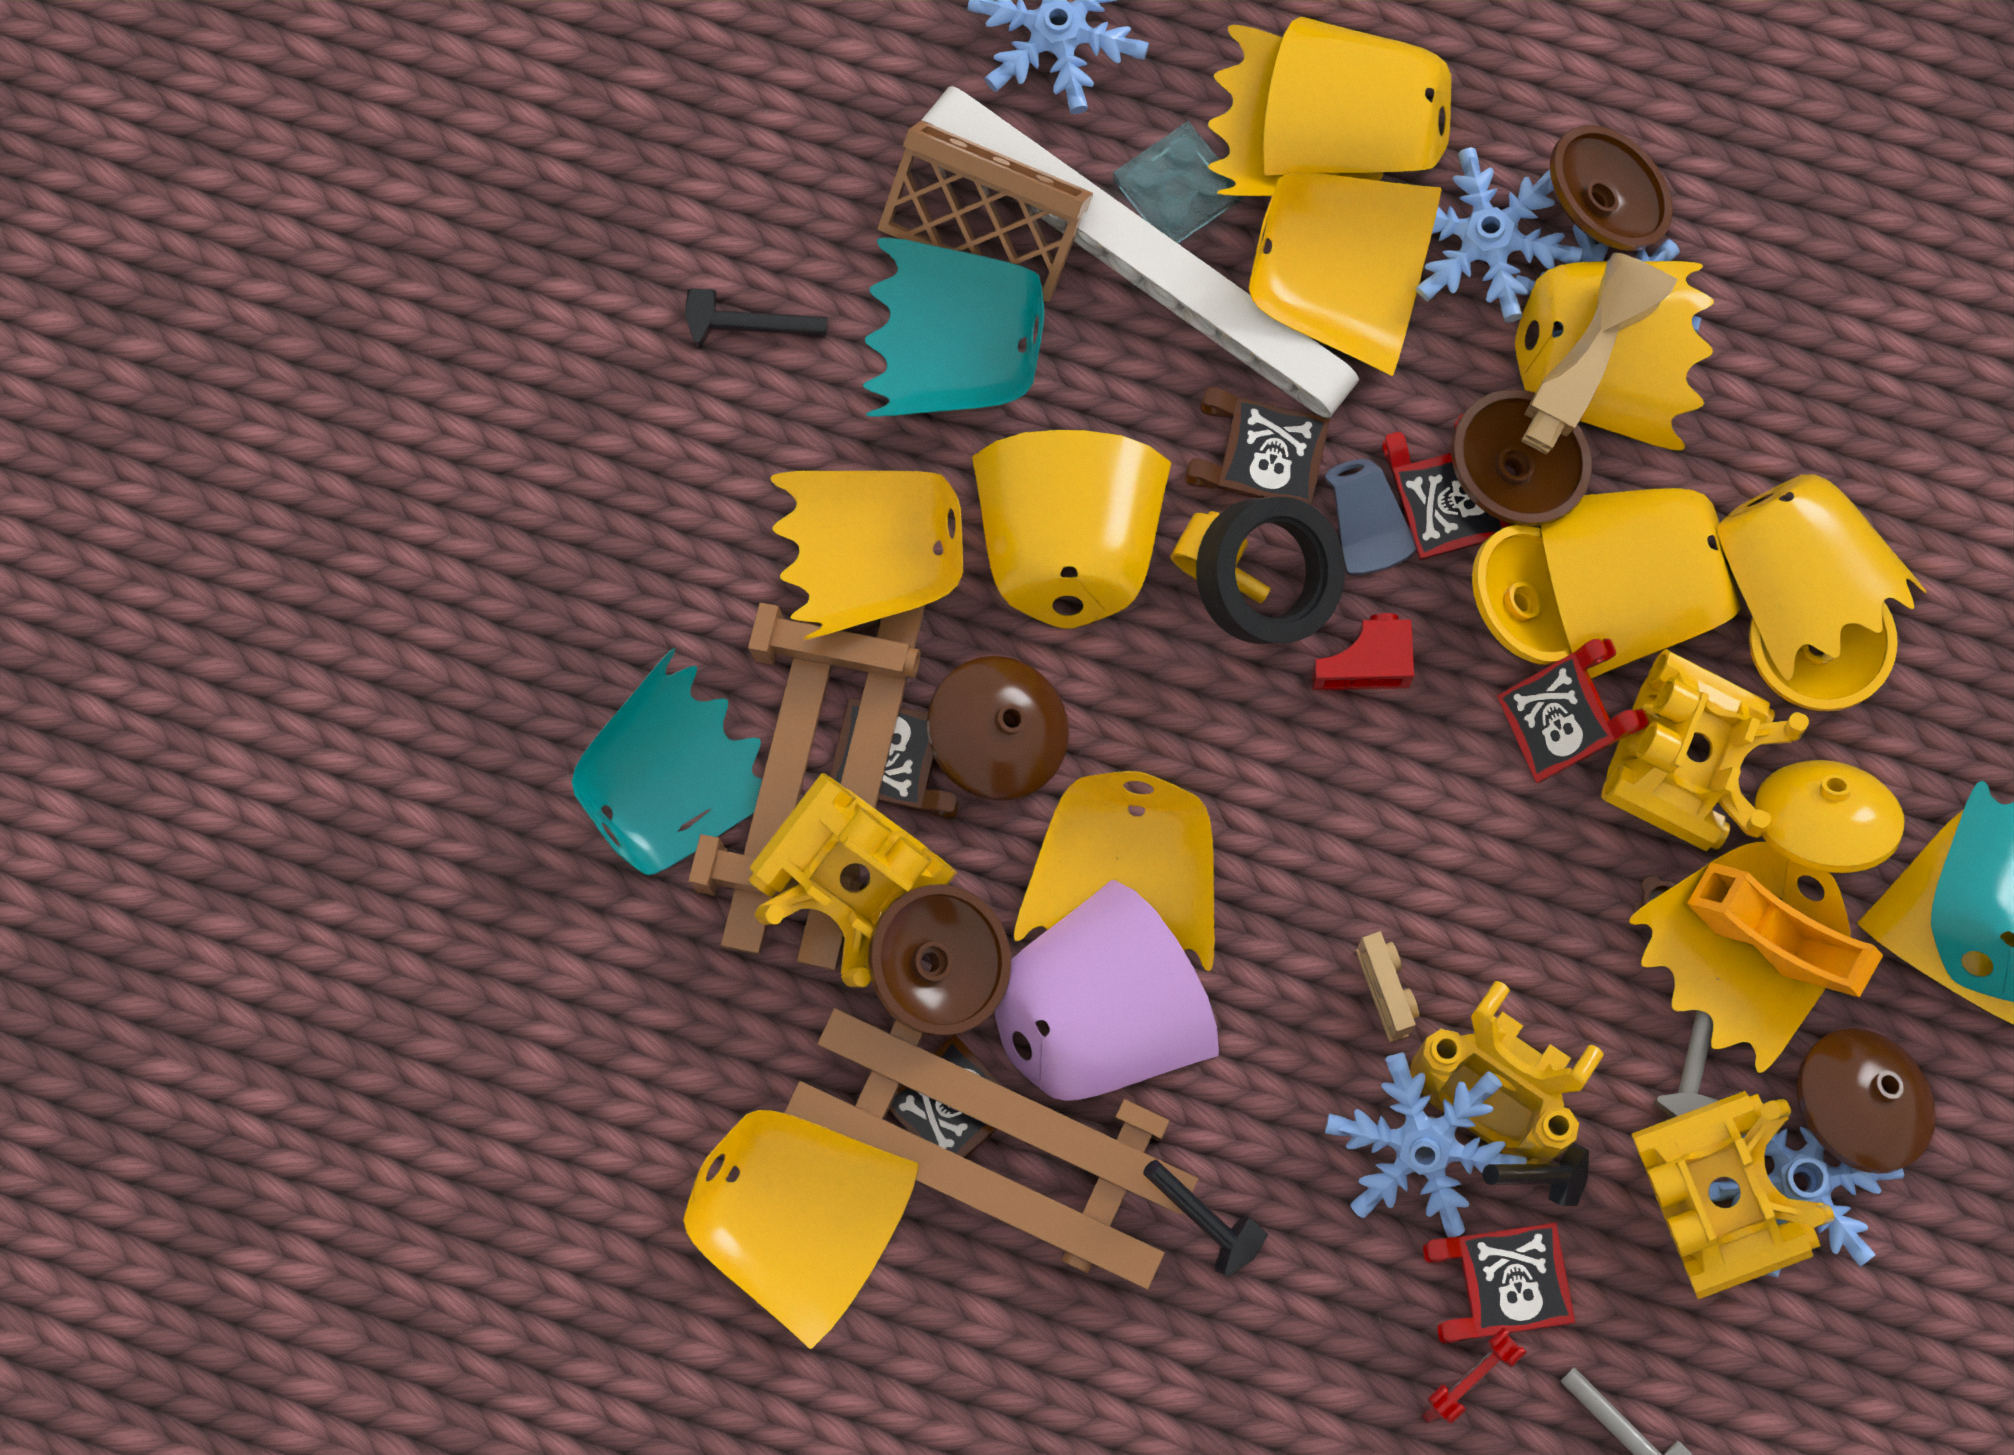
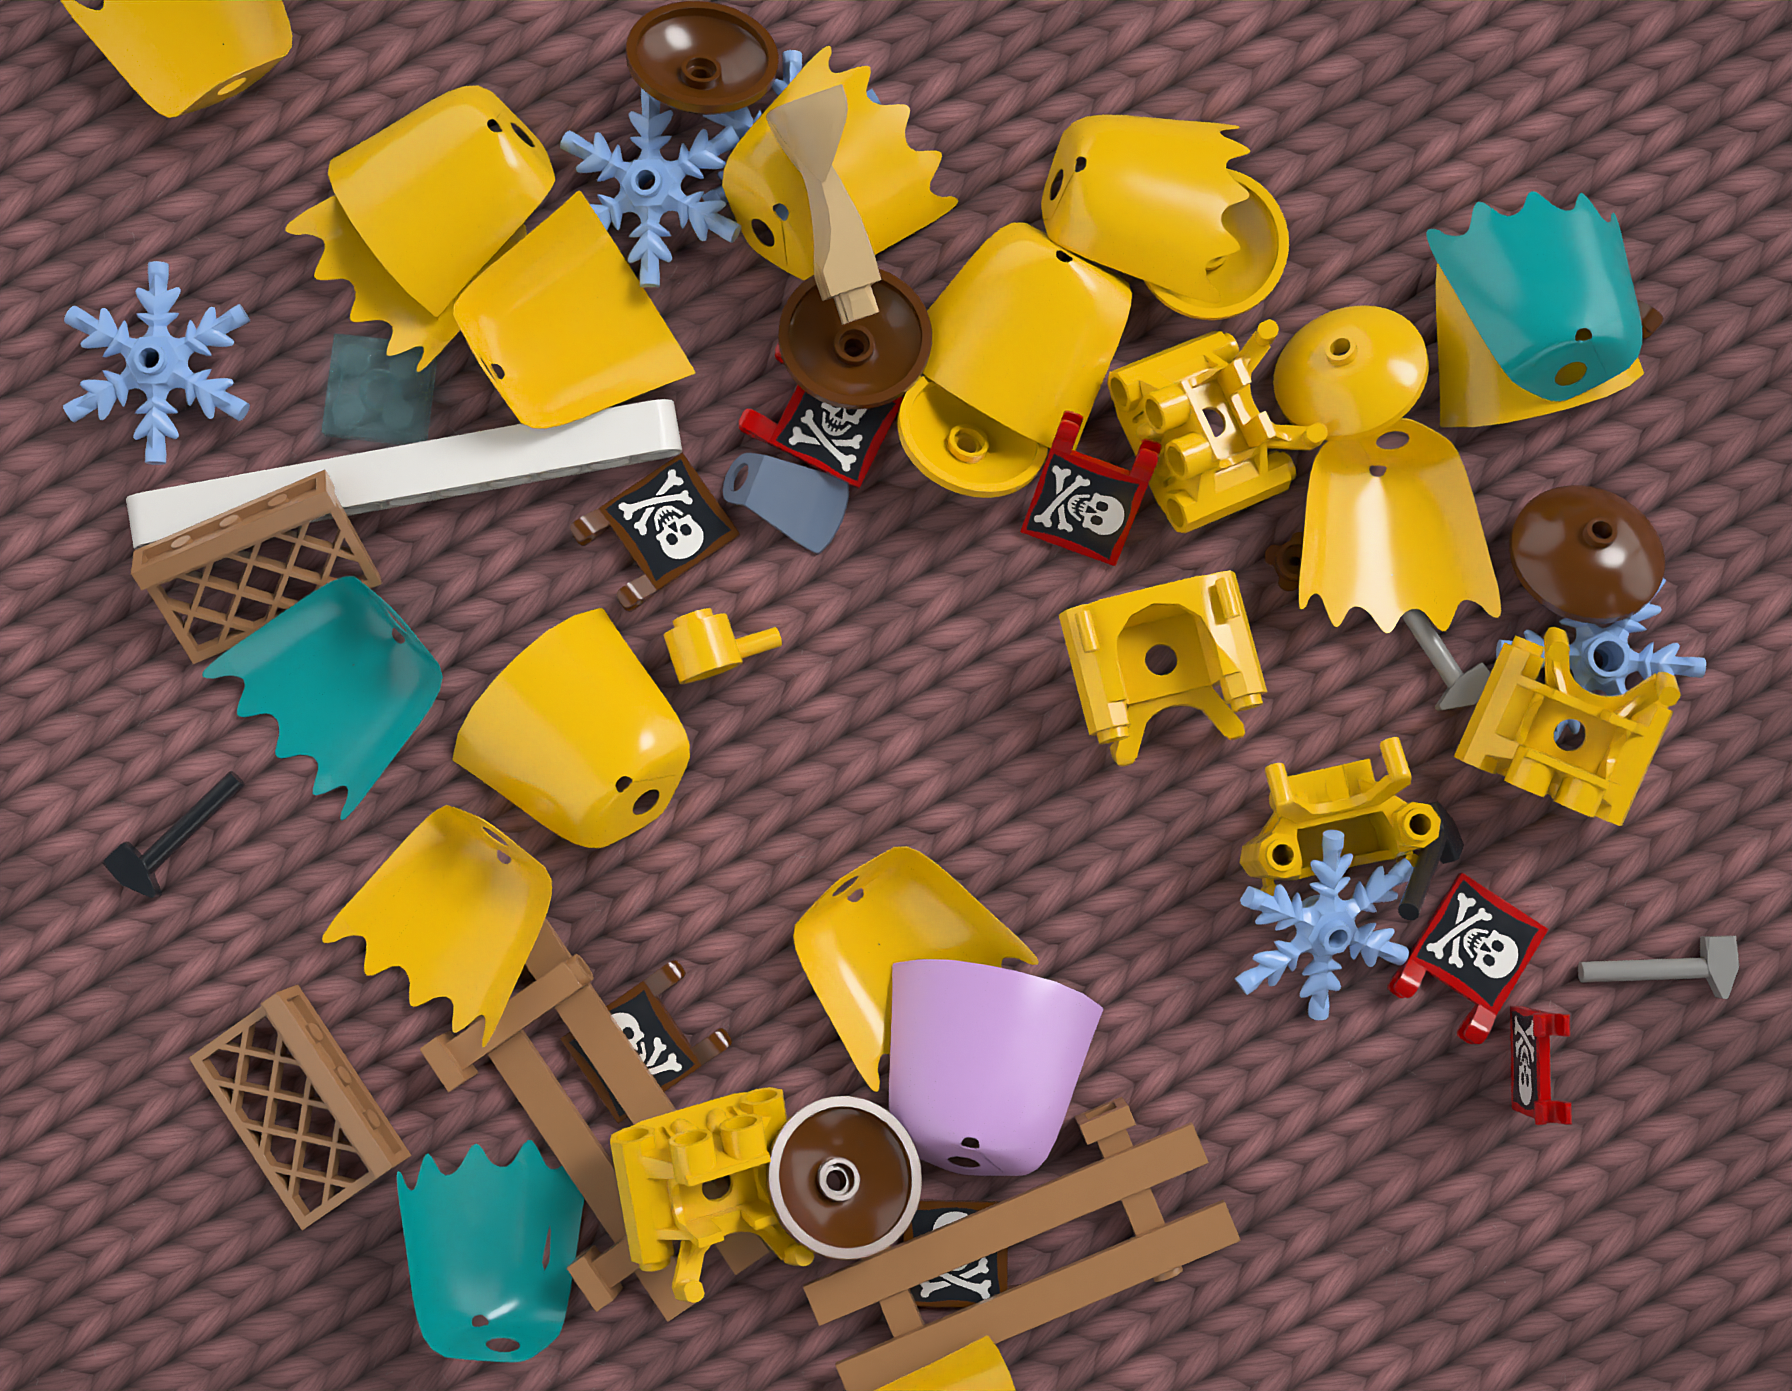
camera: 45 degrees left, 10 degrees up
(680, 573) = (327, 1074): none -> medium nougat fence
(975, 743) = (669, 972): reddish brown dish -> none
(1237, 1244) = (1263, 1134): black piece -> none
(1322, 560) = (812, 587): black tyre -> none
(1375, 661) = (909, 598): red arch -> none
(1395, 1006) = (1155, 826): tan plate -> none
(1490, 813) = (1212, 644): none -> yellow piece
(1795, 945) = (1412, 496): light orange arch -> none

